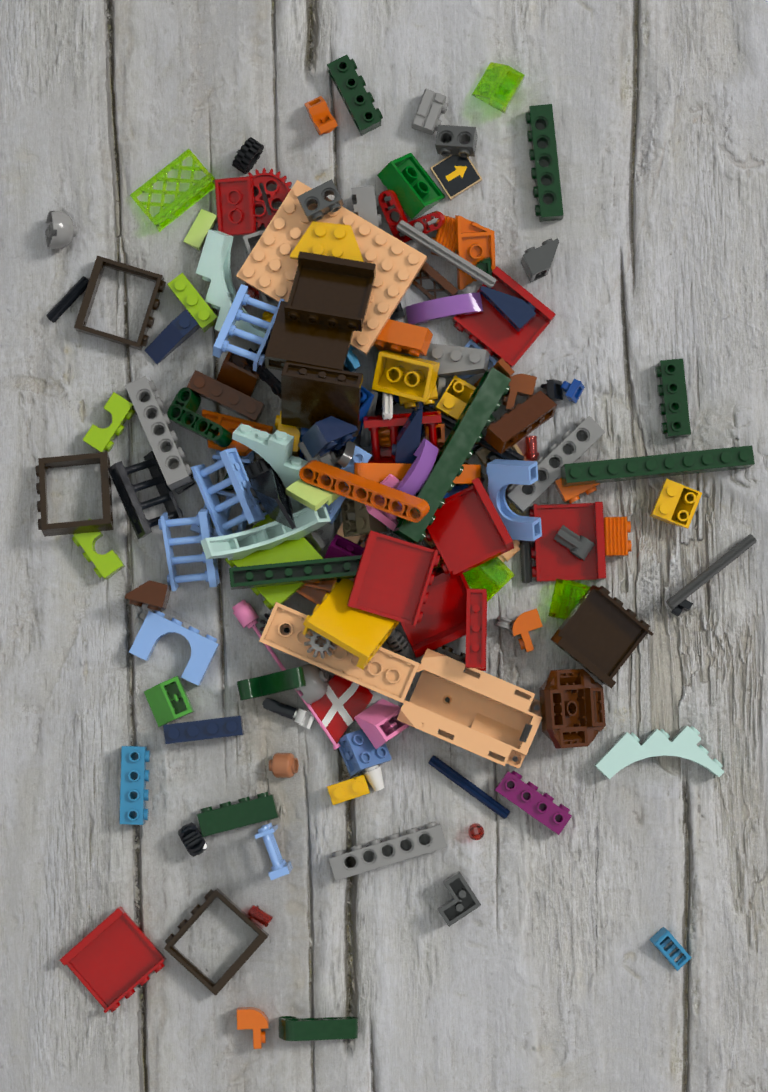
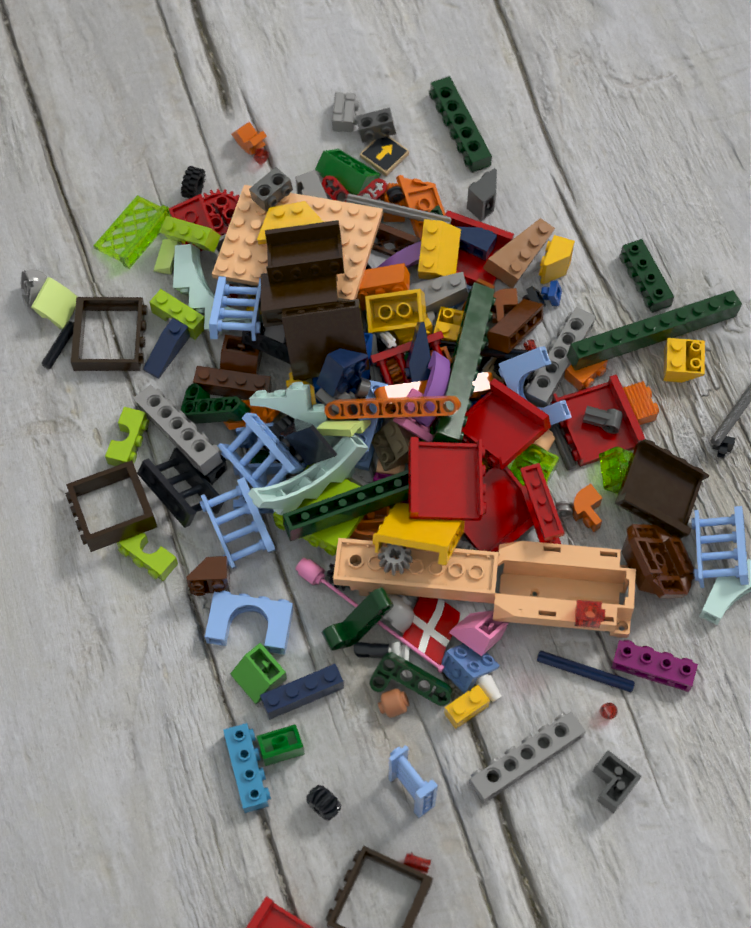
camera: 15 degrees left, 20 degrees down
(75, 255) = (55, 303): none -> yellowish green slope
(170, 771) = (280, 745): none -> green slope
(219, 216) = (184, 231): none -> lime arch
(237, 815) = (359, 767): dark green brick -> none
(324, 137) = (258, 155): none -> clear red hinge
(324, 767) = (413, 682): none -> dark green beam
(354, 94) = (273, 115): dark green brick -> none
(448, 235) = (395, 194): none -> black bush
(471, 316) = (438, 249): none -> yellow slope
(472, 752) = (582, 620): none -> clear red brick
(499, 86) = (399, 76): clear neon green slope -> none
(551, 340) = (517, 255): none -> medium nougat wedge
(589, 357) = (556, 259): none -> yellow slope
(649, 724) = (738, 553): none -> light blue fence

